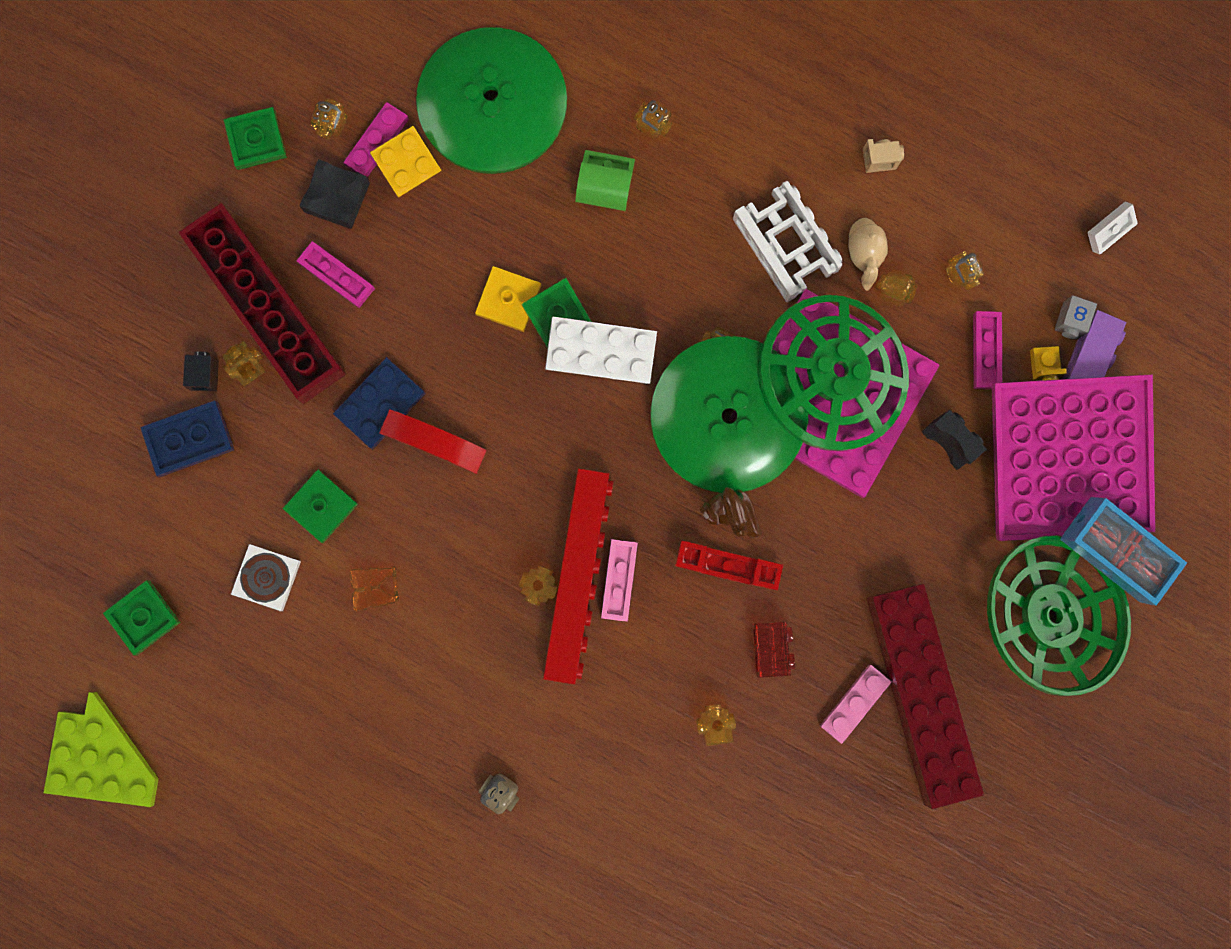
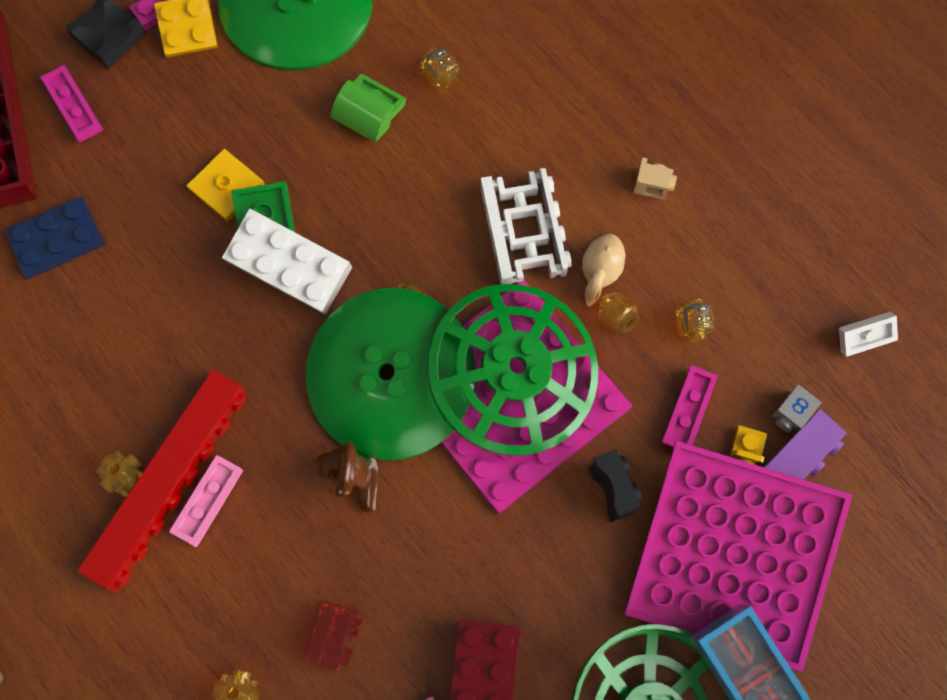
camera: 25 degrees right, 10 degrees down
(433, 441) = (87, 291): red slope -> none
(729, 566) = (324, 528): red slope -> none

